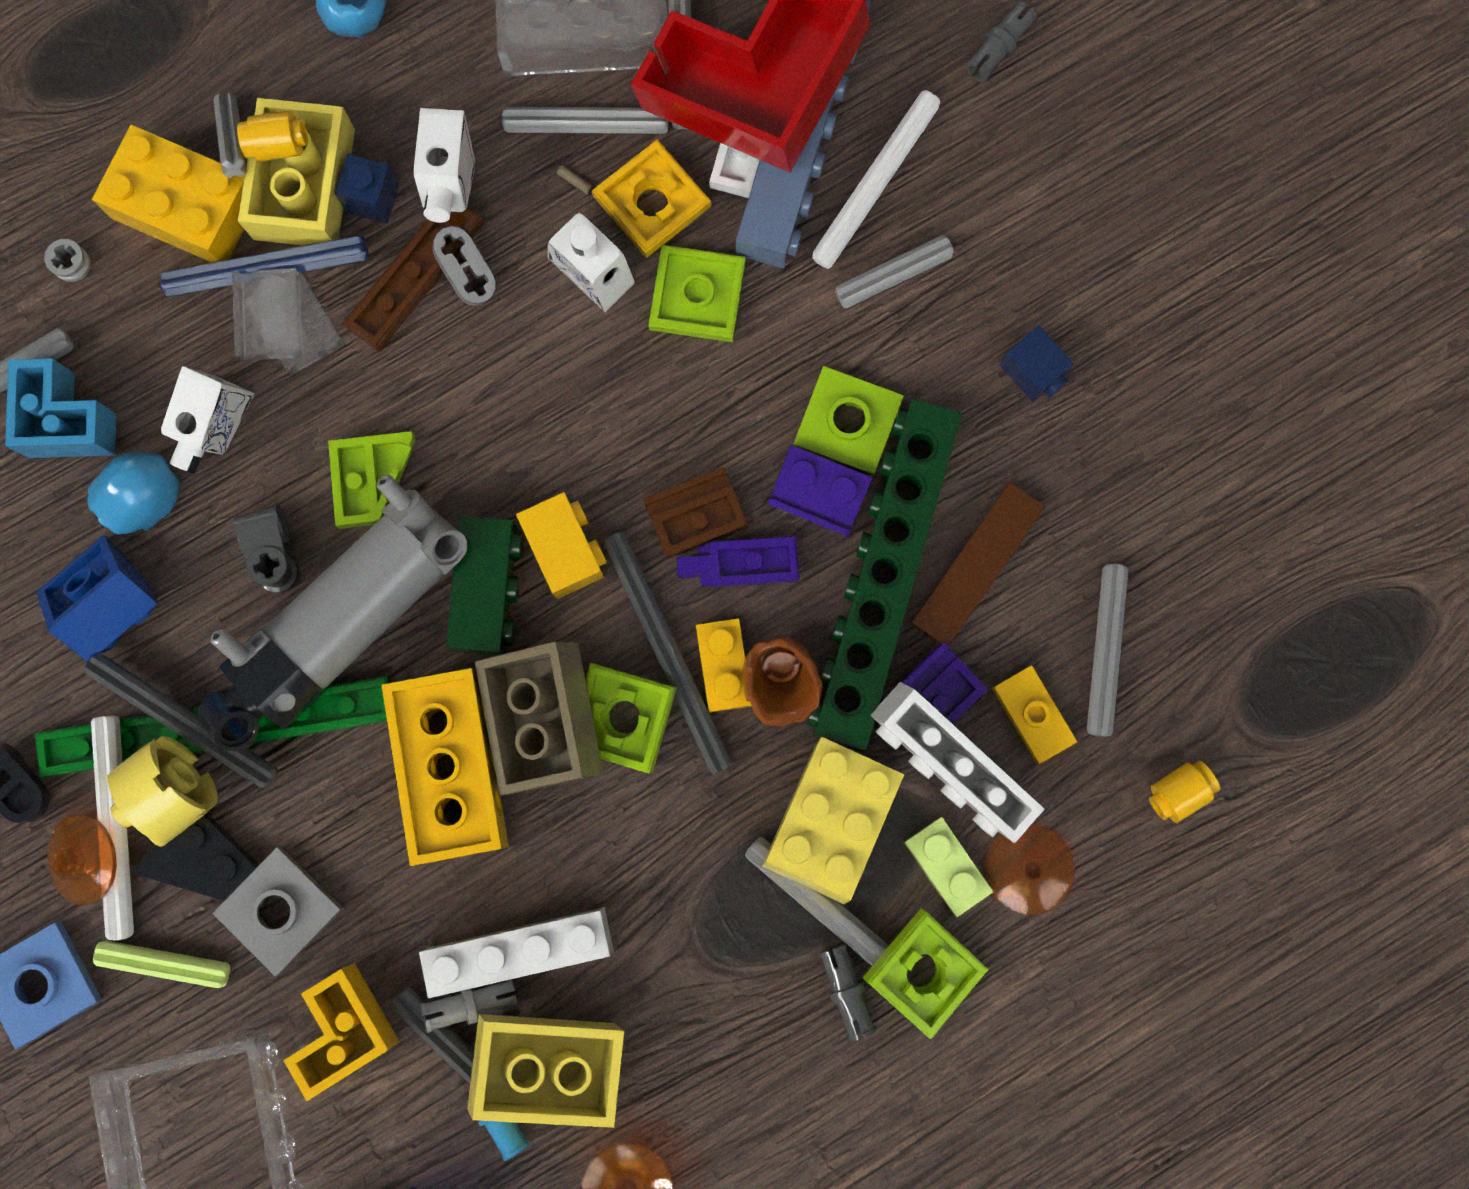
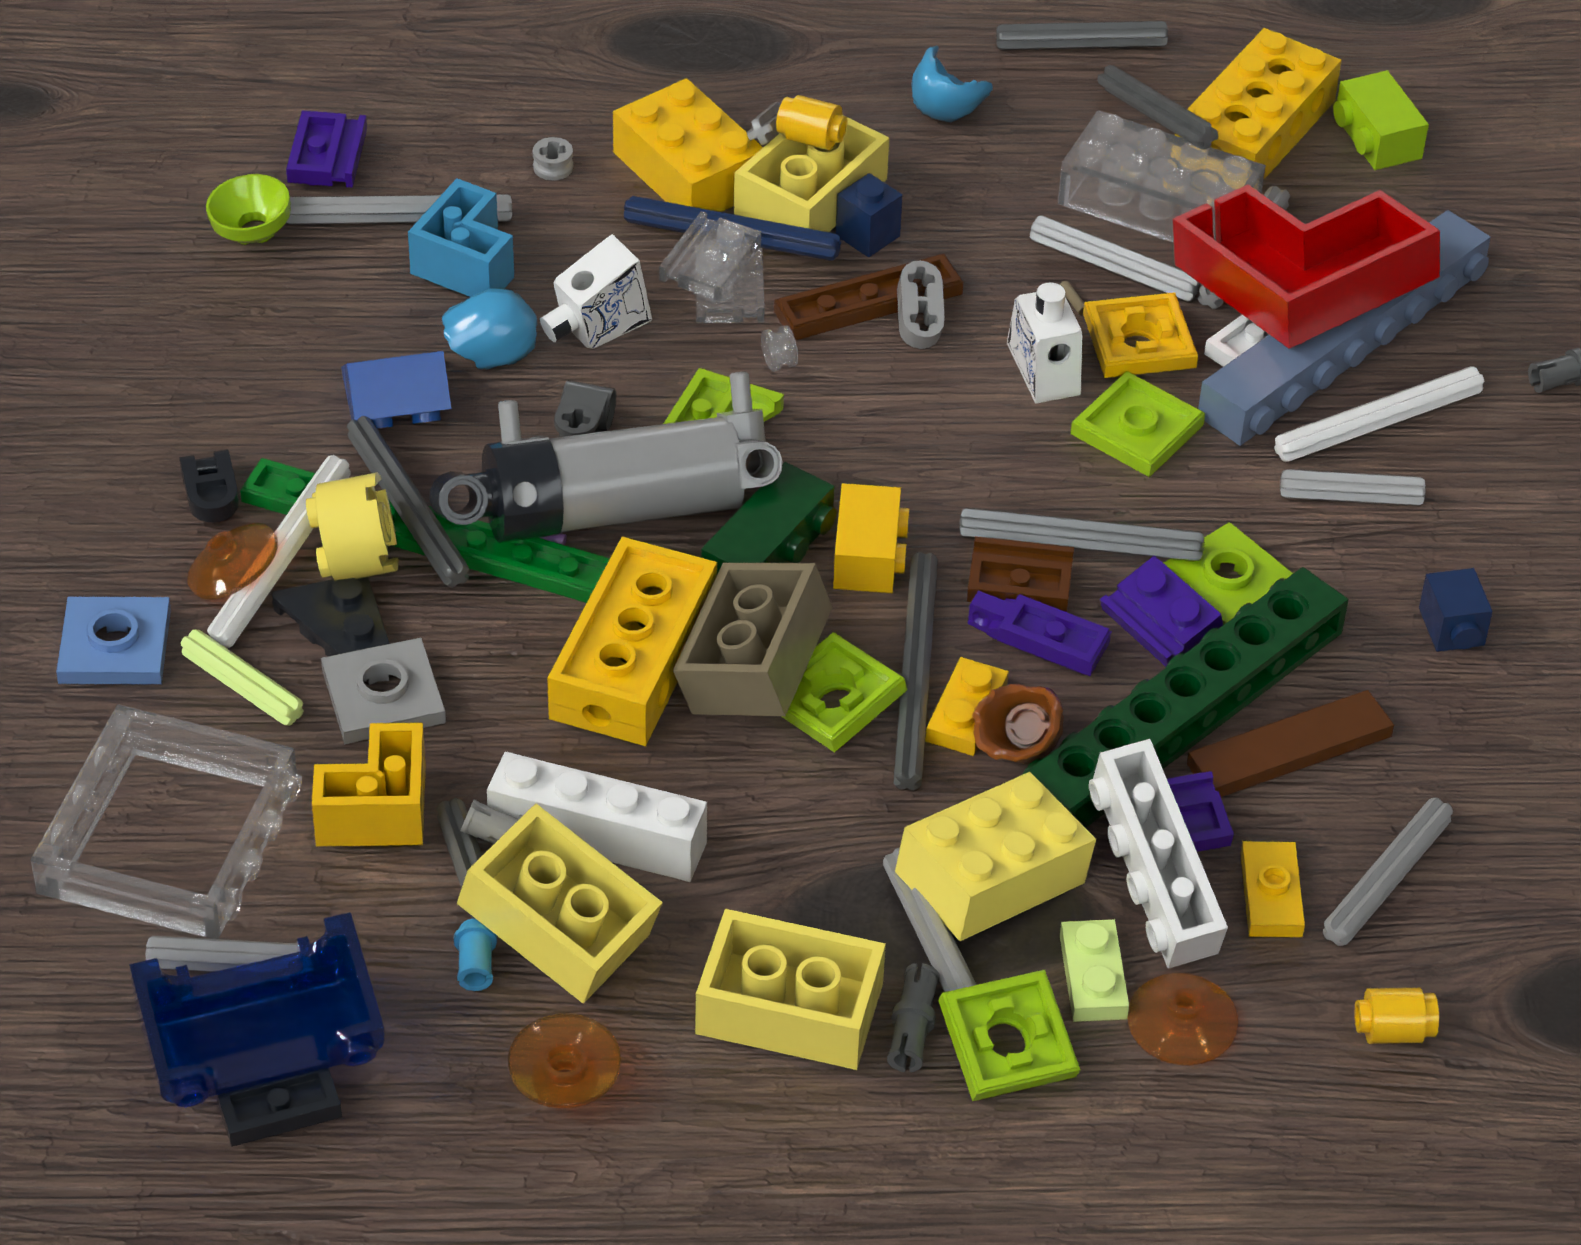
camera: 30 degrees right, 35 degrees down
(378, 377) = (779, 348): none -> clear bush
(443, 181) = (956, 213): white torso -> none
(721, 446) = (1083, 534): none -> axle
(754, 1038) = (790, 989): none -> light yellow brick

